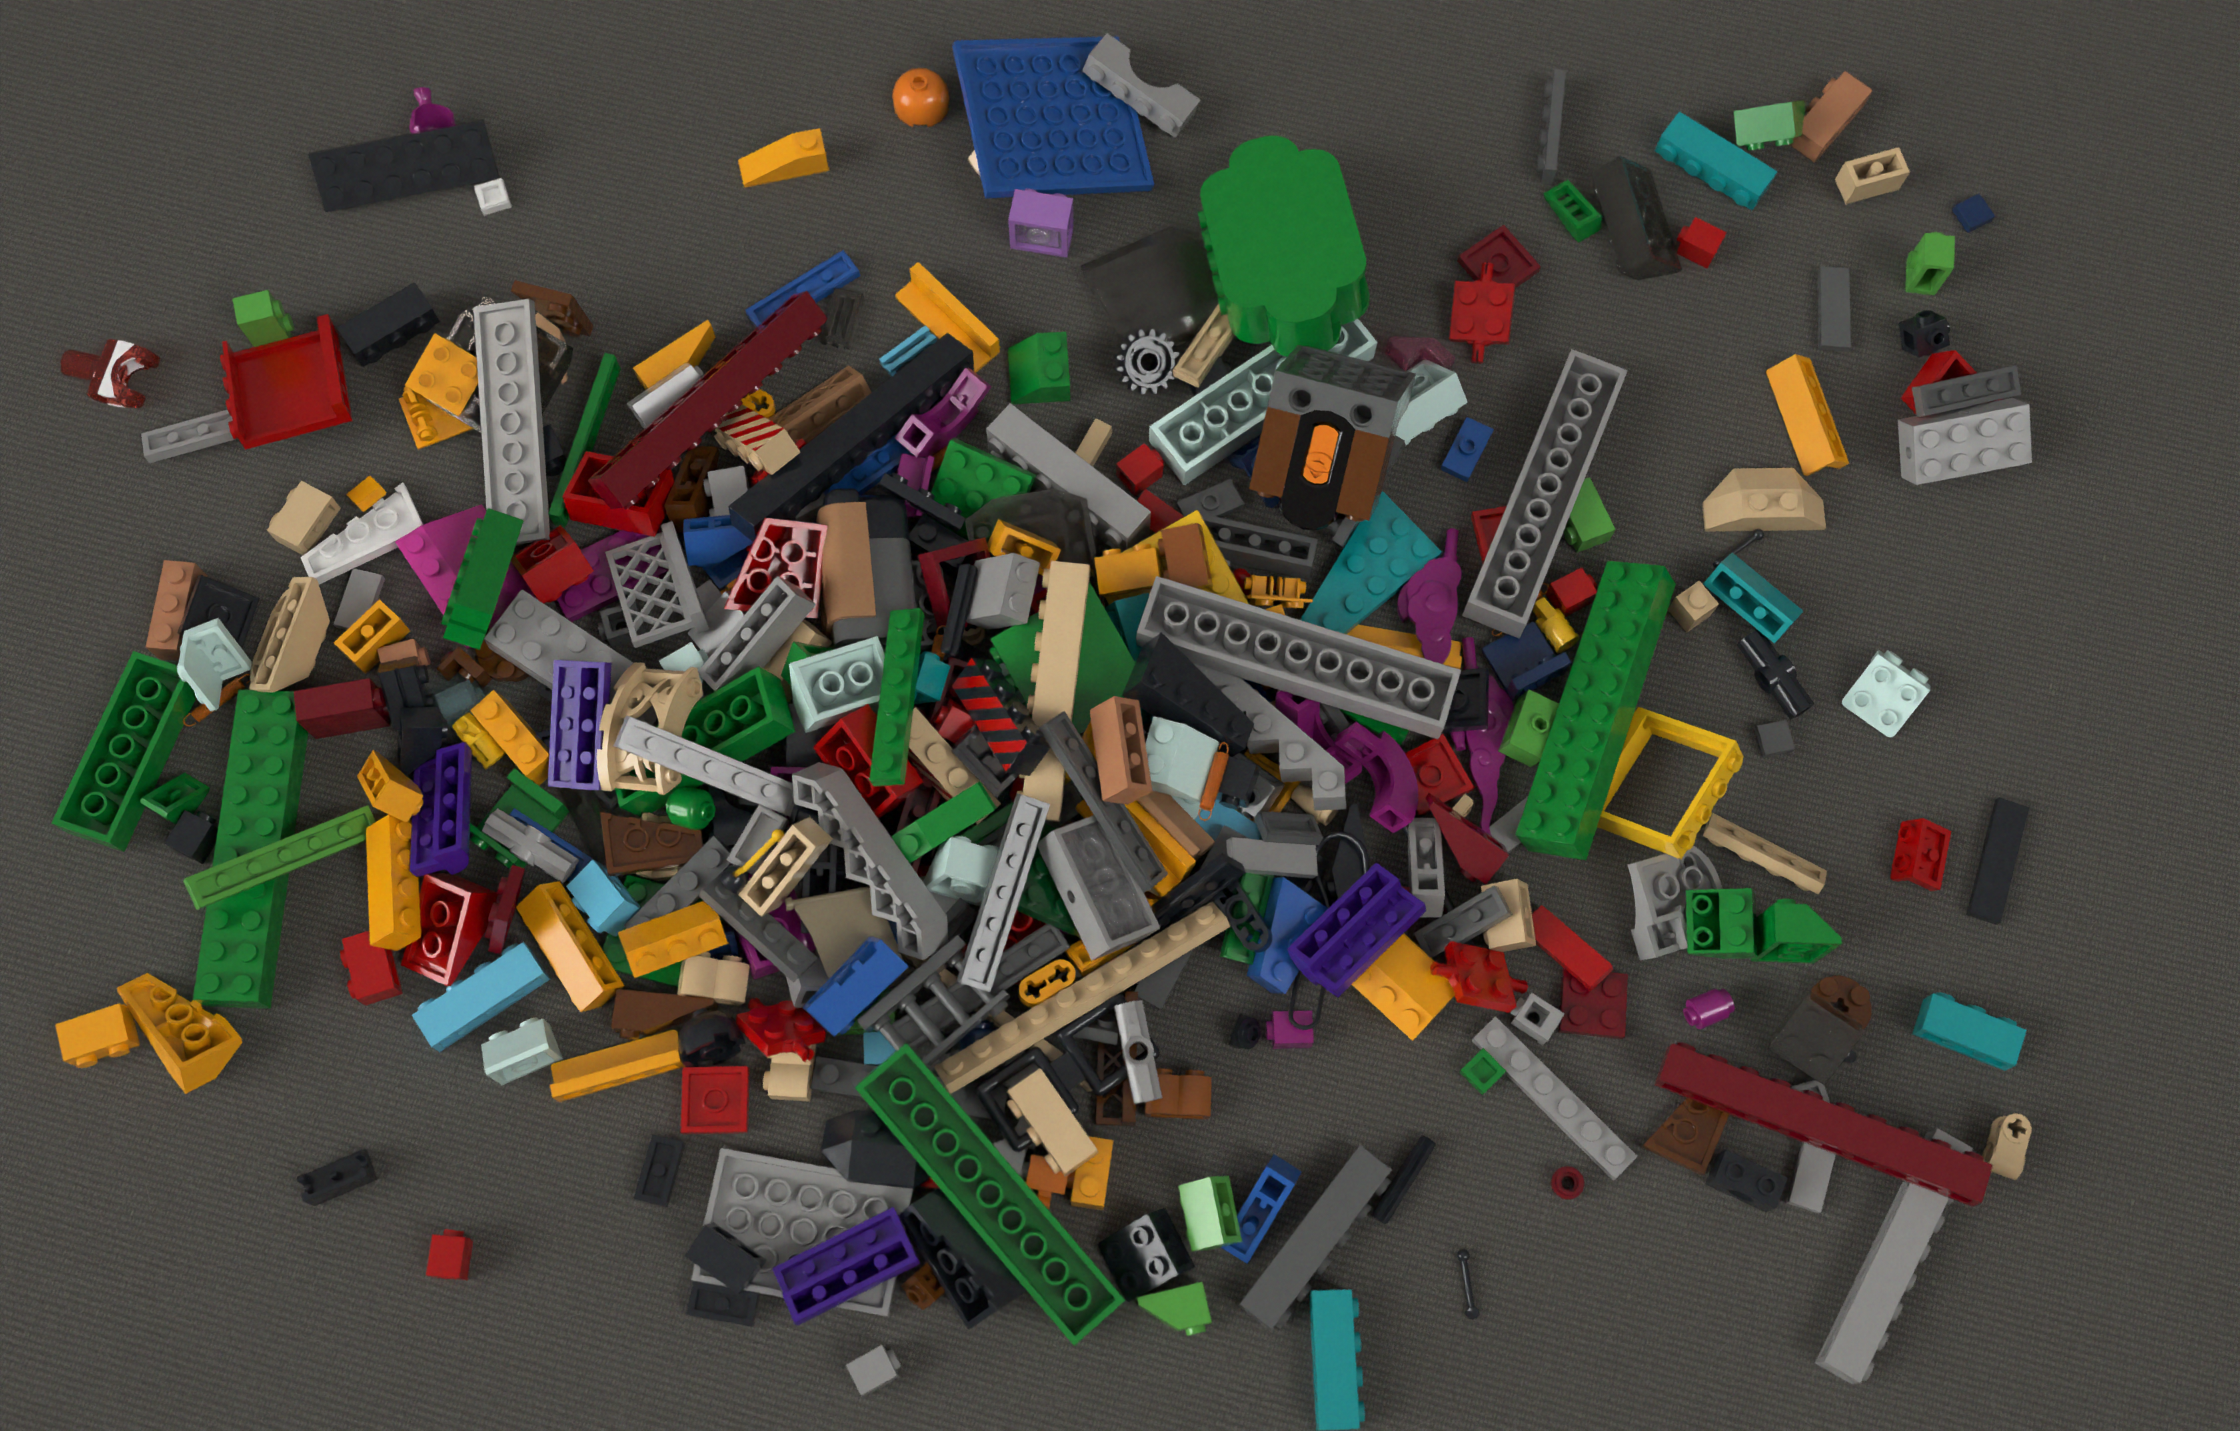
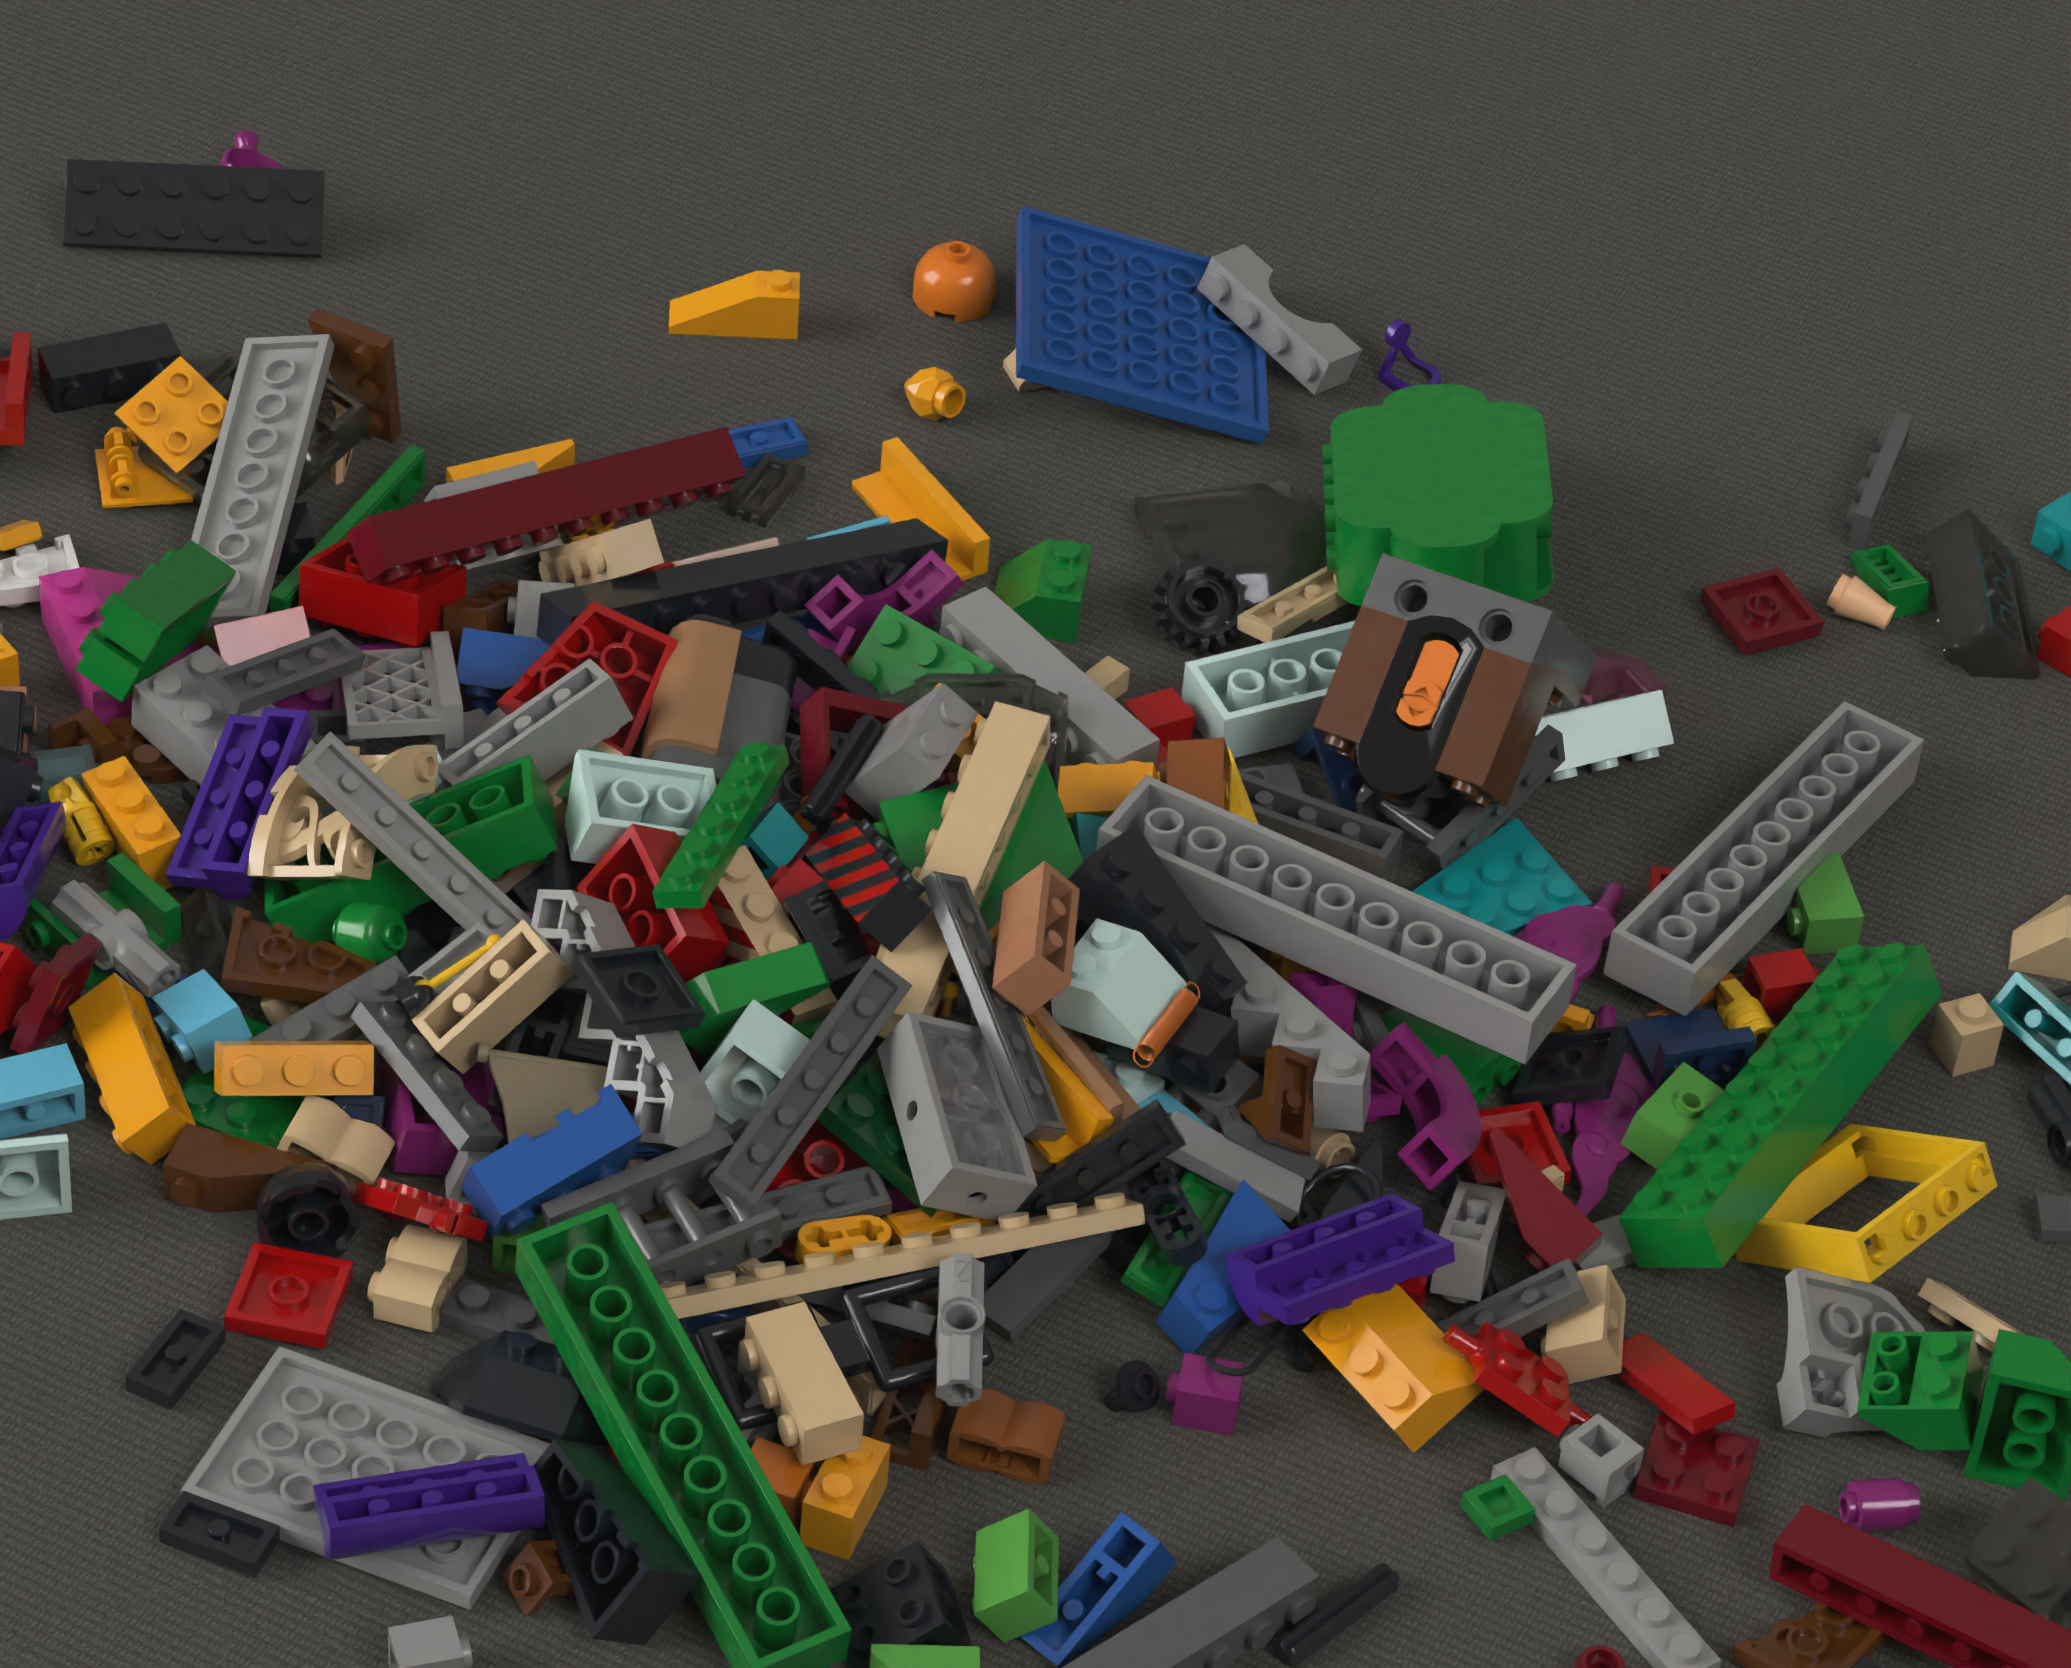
camera: 10 degrees right, 30 degrees down
(492, 196) = (305, 273): white tile -> none
(578, 603) = (284, 672): none -> dark grey plate
(615, 1066) = (150, 1234): light orange panel -> none
(725, 1257) = (247, 1457): black hinge -> none
(878, 854) = (638, 990): none -> black tile
(931, 207) = (935, 394): none -> light orange rock
(1041, 222) = (1090, 431): medium lavender piece -> none
(1220, 82) = (1396, 337): none -> dark purple piece
(1296, 812) = (1286, 1104): none -> reddish brown slope
(1467, 449) = (1661, 804): blue plate -> none
(1482, 312) = (1721, 653): red plate -> none
(1558, 239) = (1860, 603): none -> light nougat cone

